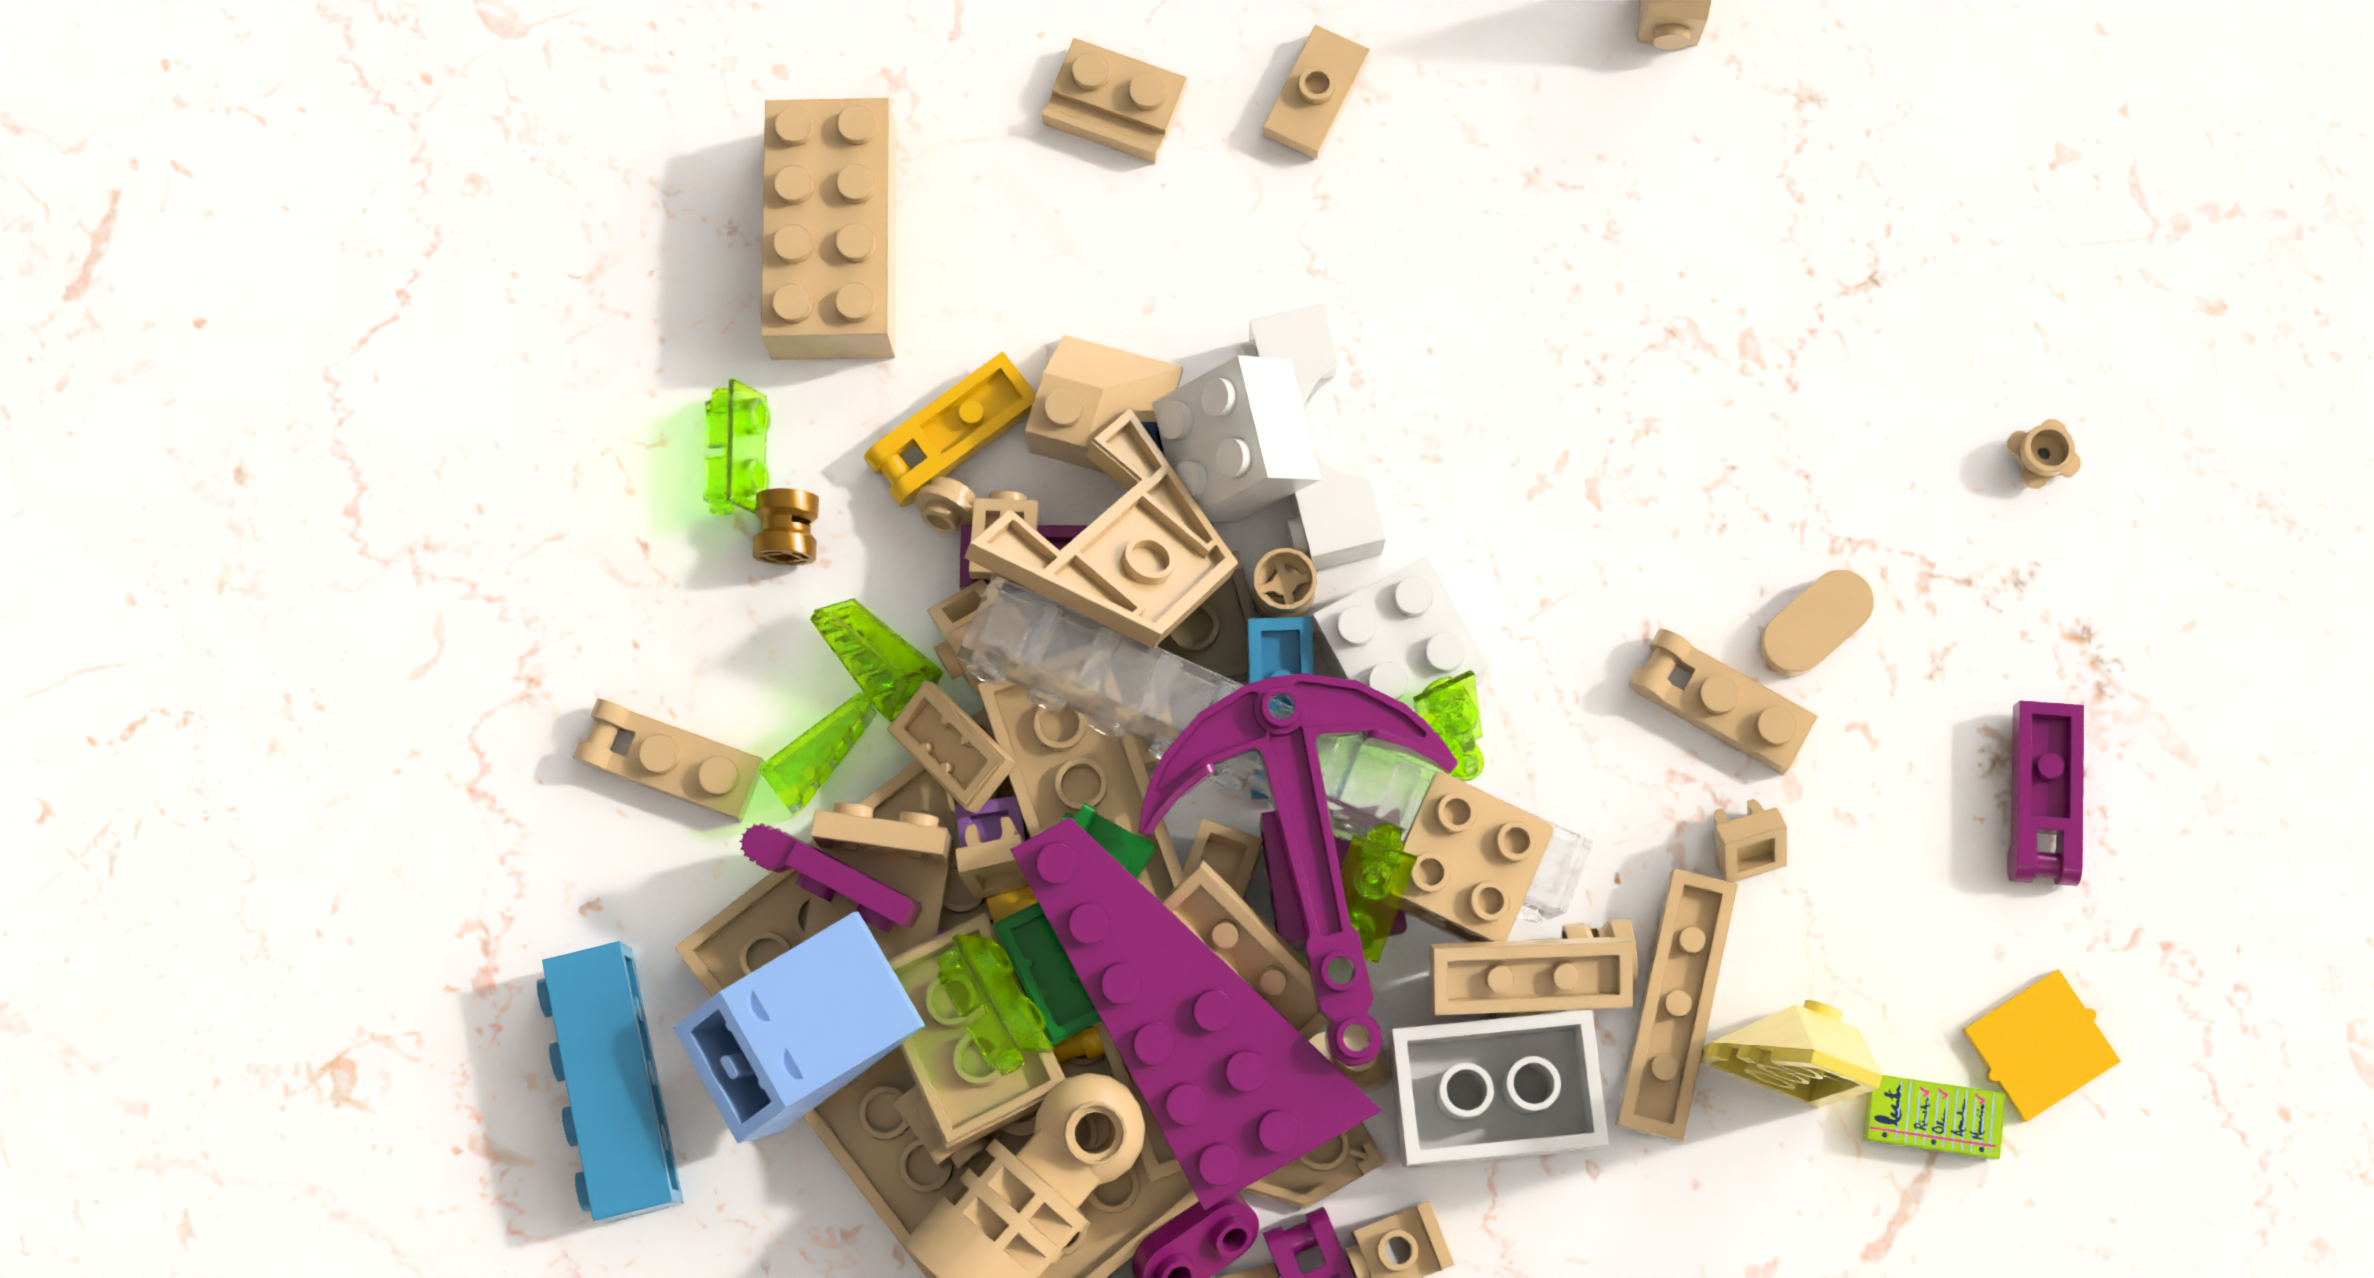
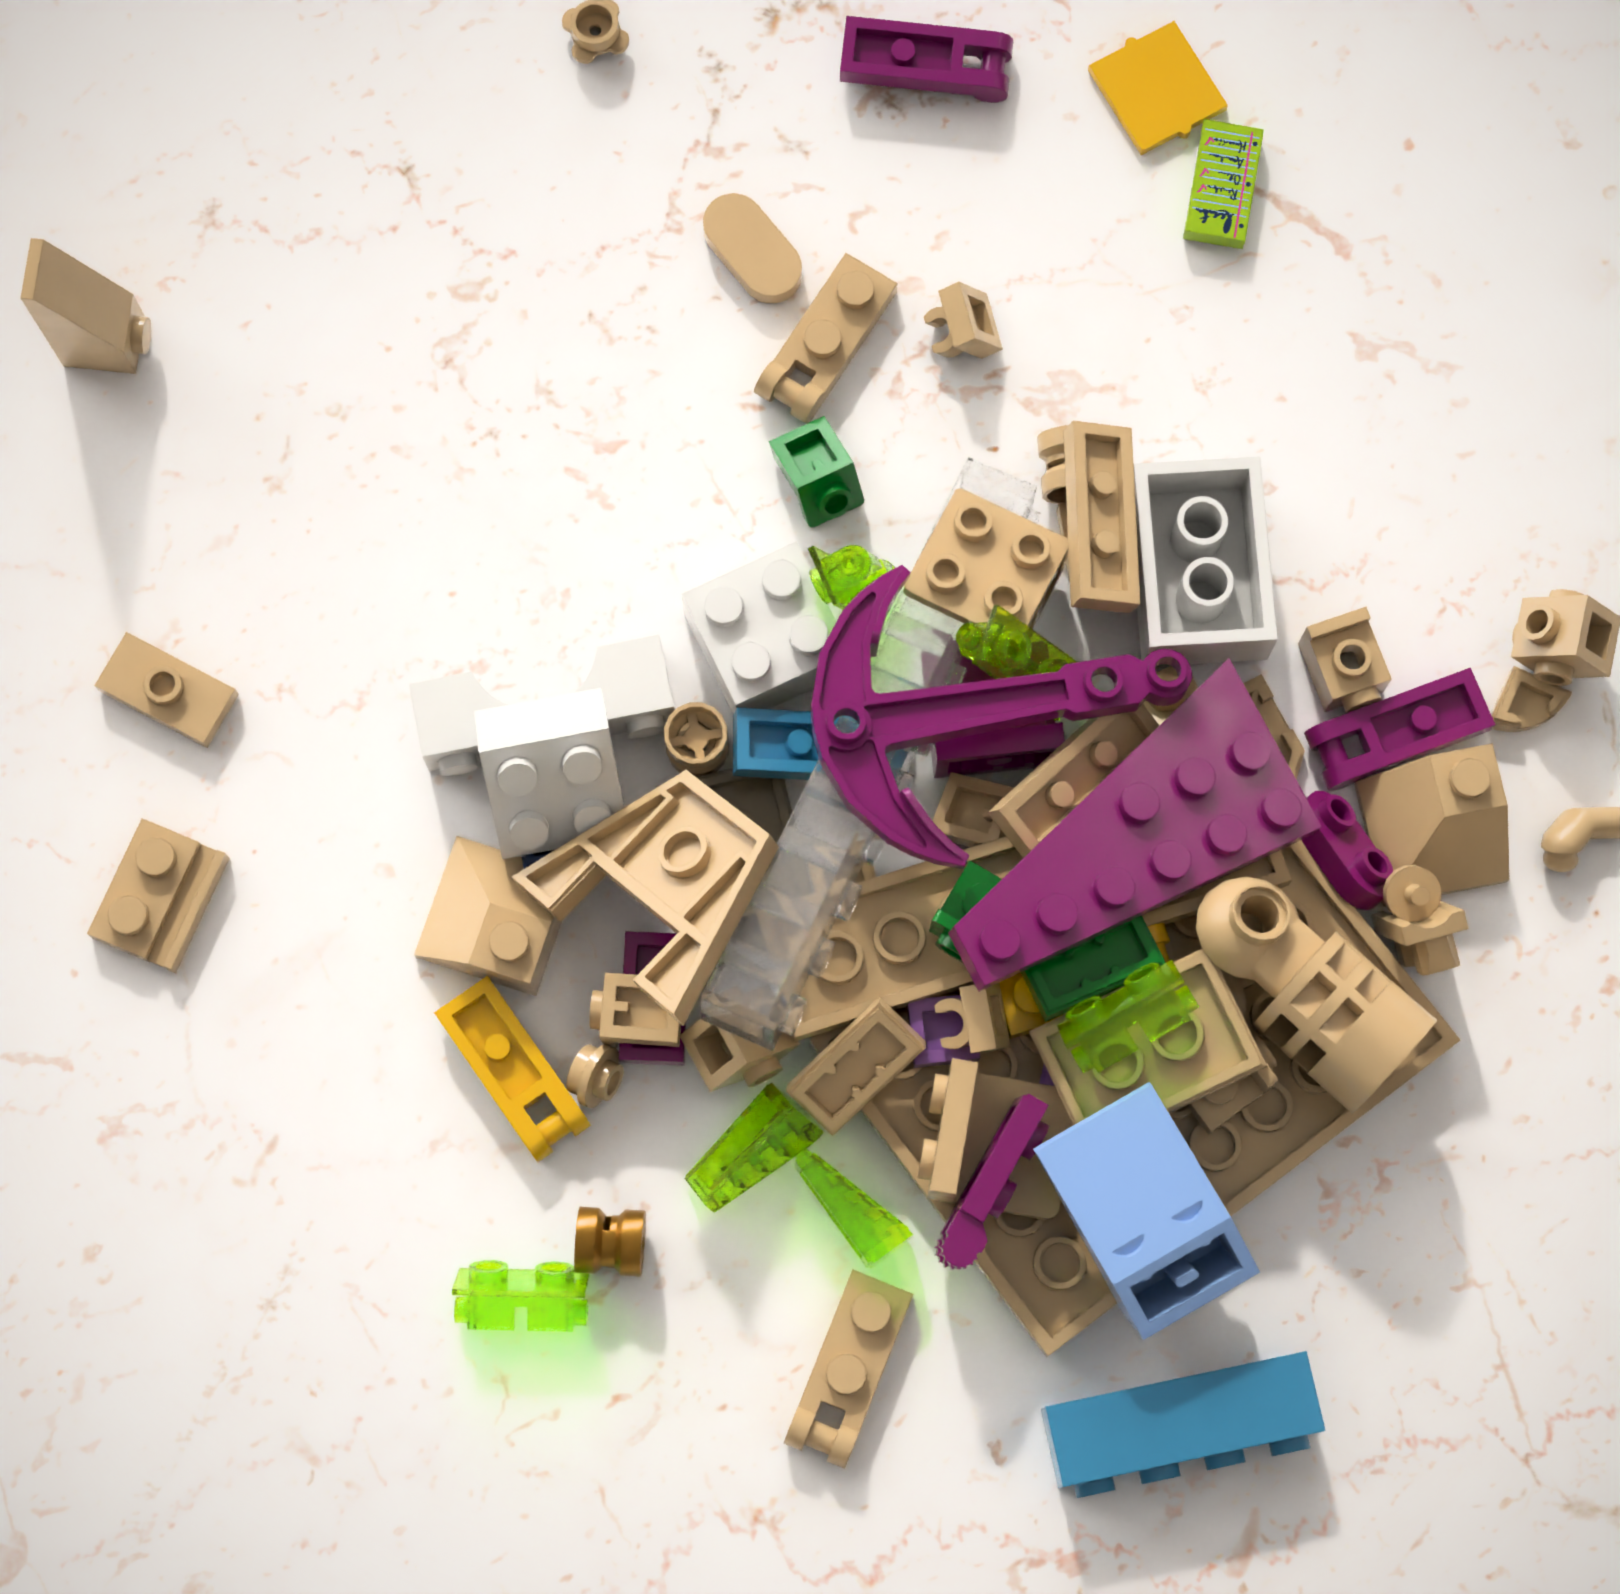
camera: 90 degrees left, 0 degrees up
(829, 229) = (284, 1190): tan brick -> none
(1575, 695) = (818, 471): none -> green bracket
(1676, 1005) = (1117, 395): tan plate -> none
(1800, 1054) = (1173, 280): light yellow wedge -> none

